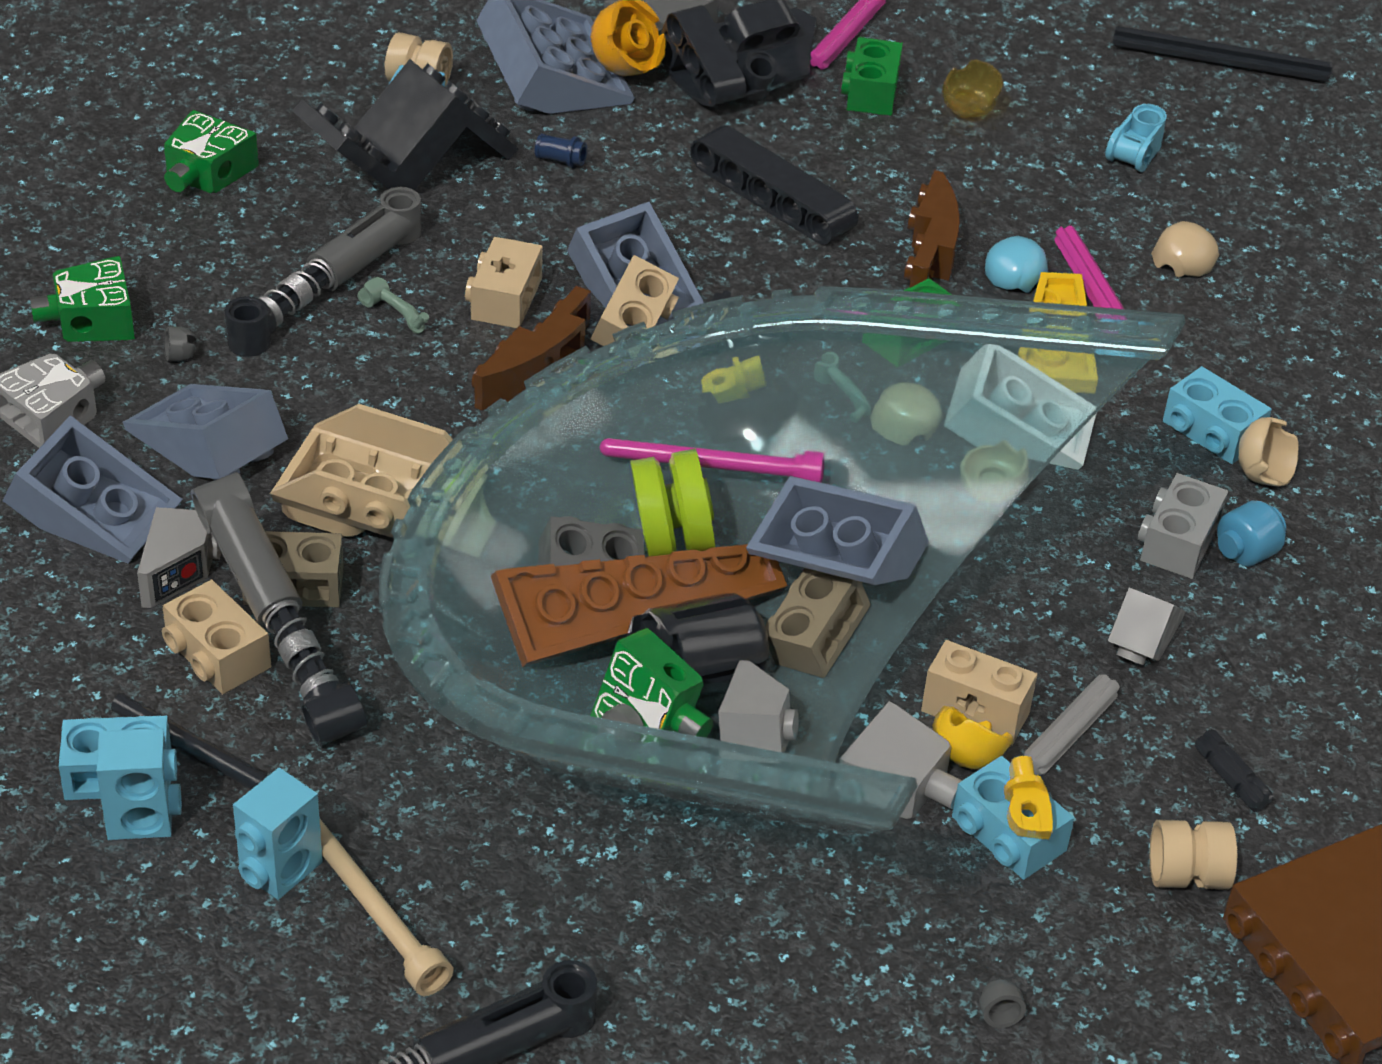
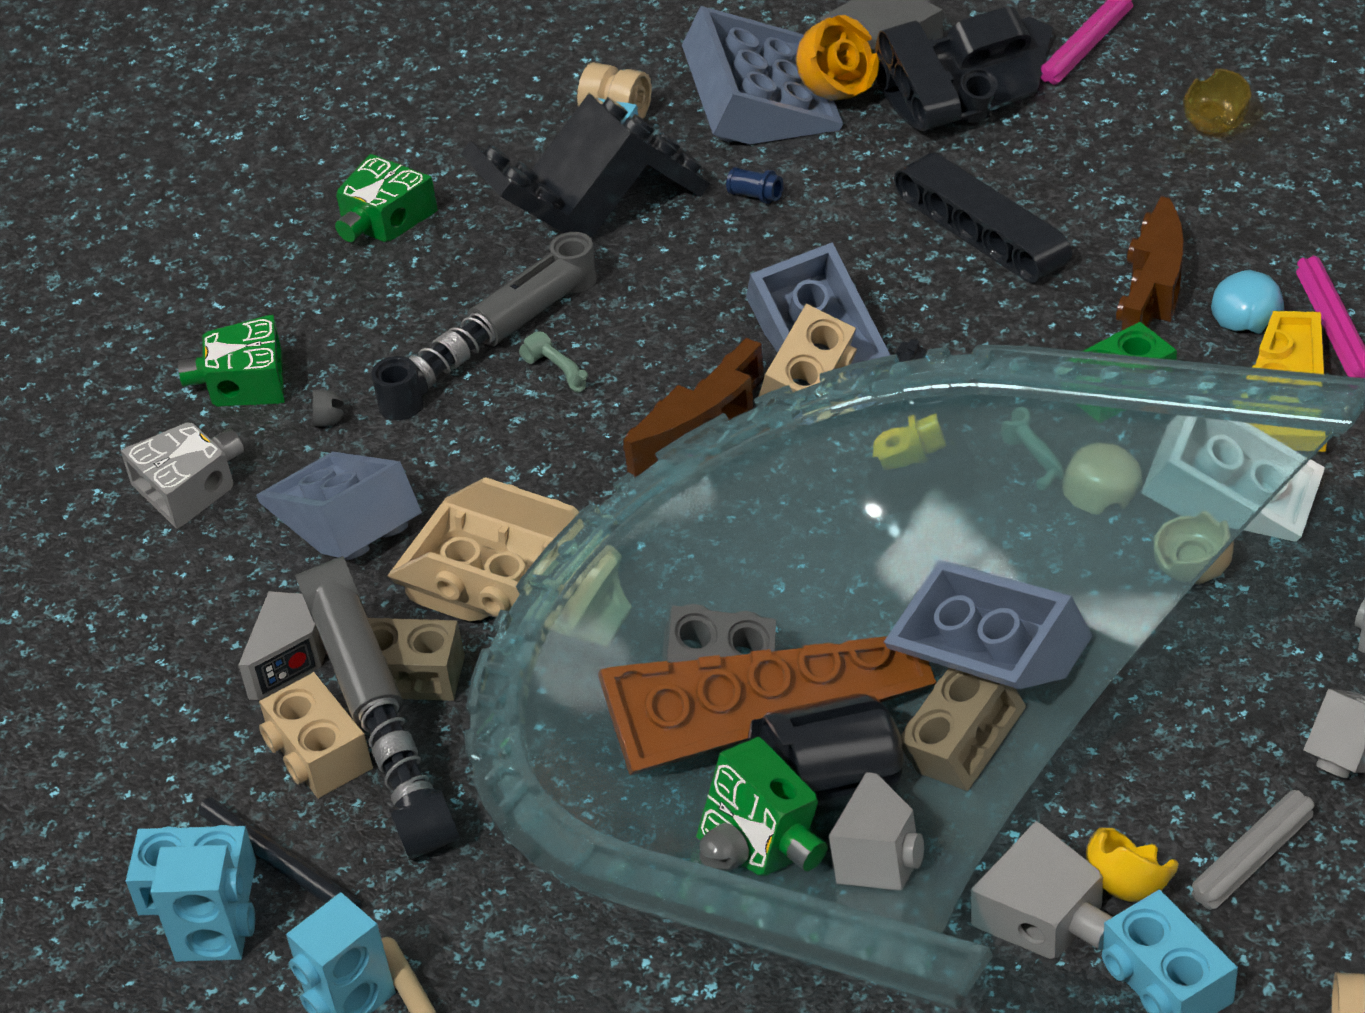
camera: 15 degrees right, 0 degrees up
(88, 493) = (205, 572): sand blue slope -> none
(505, 282) = (675, 334): tan brick -> none
(681, 504) = (800, 593): lime wheel -> none
(806, 466) = (961, 548): dark pink piece -> none
(872, 76) = (1107, 90): green brick -> none
(979, 688) = (1146, 807): tan brick -> none
(1027, 792) = (1182, 939): yellow piece -> none

